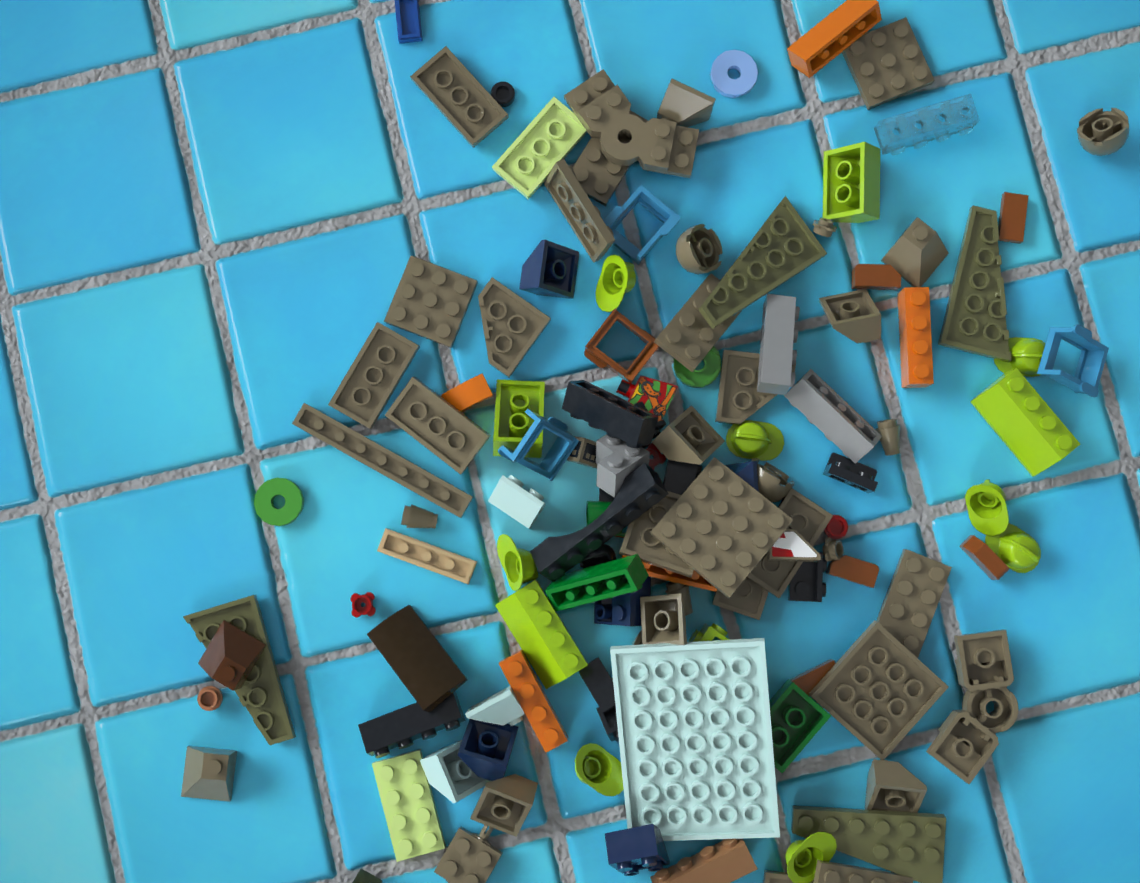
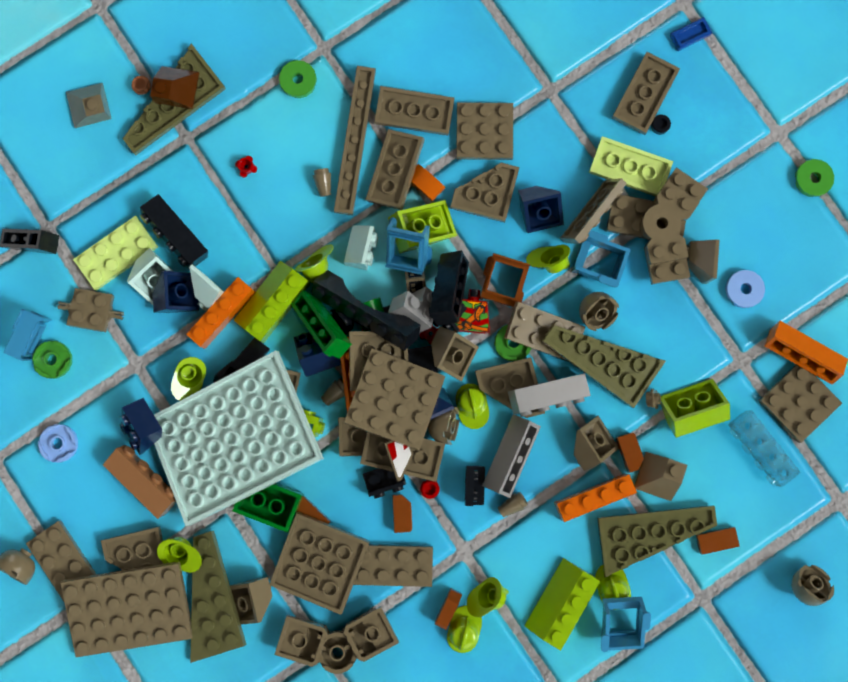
camera: 65 degrees right, 0 degrees up
(417, 658) = (220, 218): dark brown slope -> none
(427, 556) = (297, 199): tan tile -> none
(505, 803) = (140, 319): dark tan slope -> none
(663, 619) = (311, 382): dark tan slope -> none
(832, 549) = (411, 492): dark tan plate -> none

